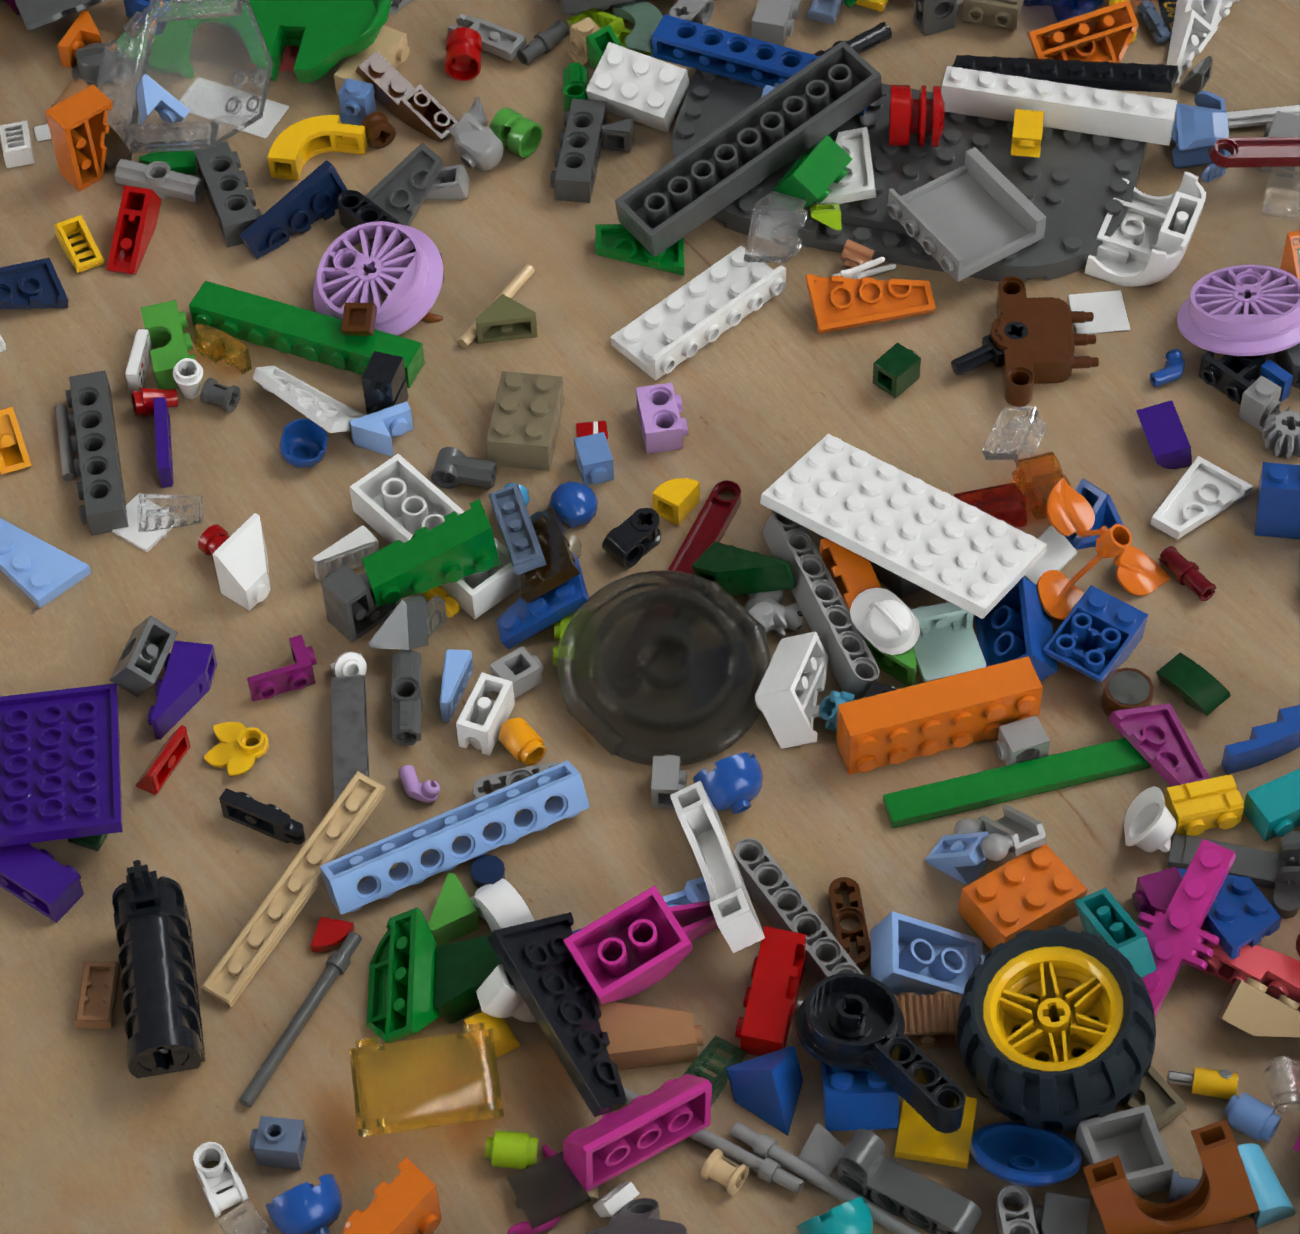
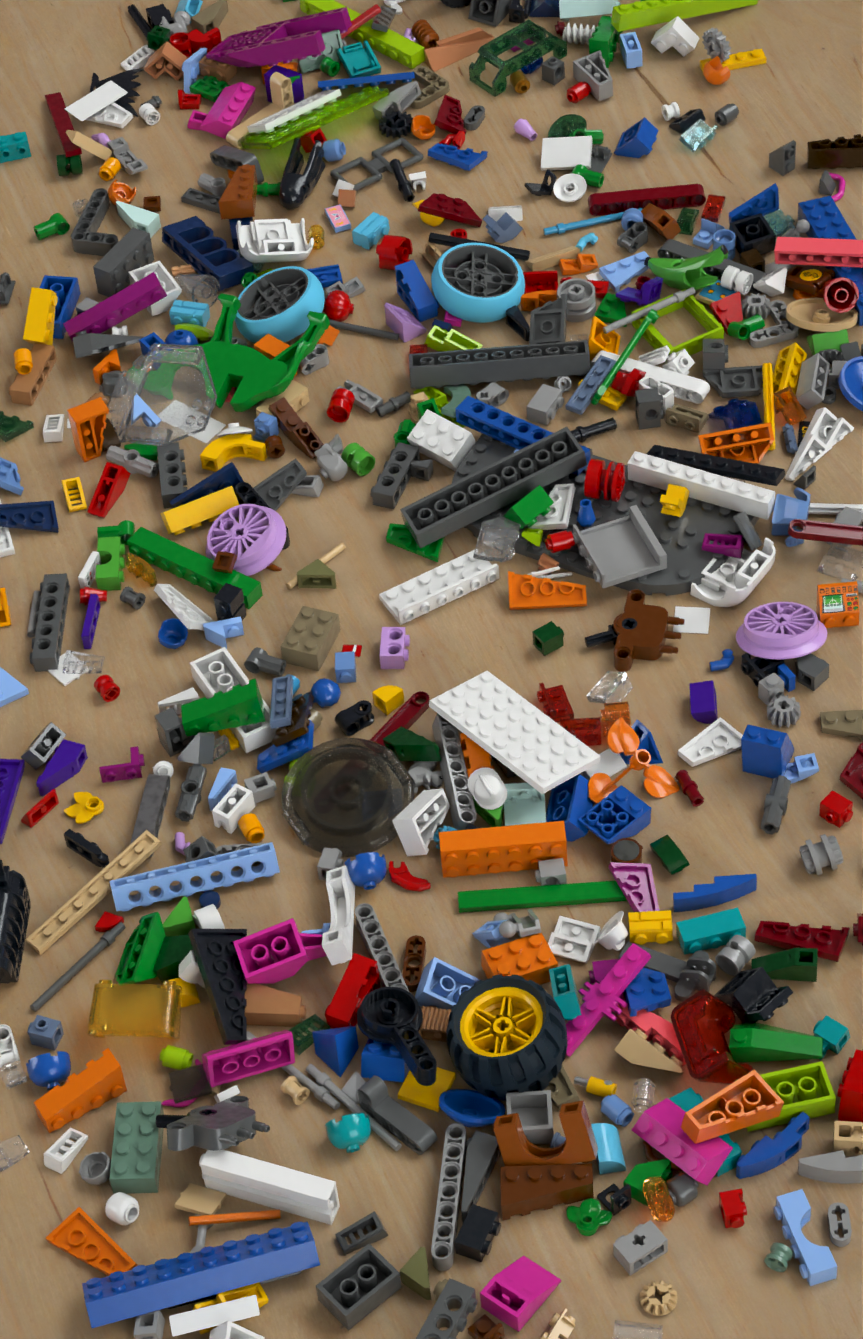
camera: 15 degrees right, 5 degrees down
(177, 287) = (124, 530): none -> green piece
(188, 376) = (115, 584): white cone -> none
(243, 565) = (117, 700): white slope -> none
(290, 243) = (199, 510): none -> yellow brick
(309, 109) = (234, 428): none -> white dish
(450, 785) = (200, 849): none -> dark grey brick
(788, 786) = (403, 878): none -> red piece
(872, 218) = (559, 541): none -> red brick
(899, 172) = (586, 514): none -> blue cone
(937, 467) = (555, 702): none -> clear red bracket
(1089, 843) = (573, 939): none -> white slope
(1134, 197) = (734, 548): none -> magenta slope
(1148, 166) = (748, 531): none -> dark grey slope

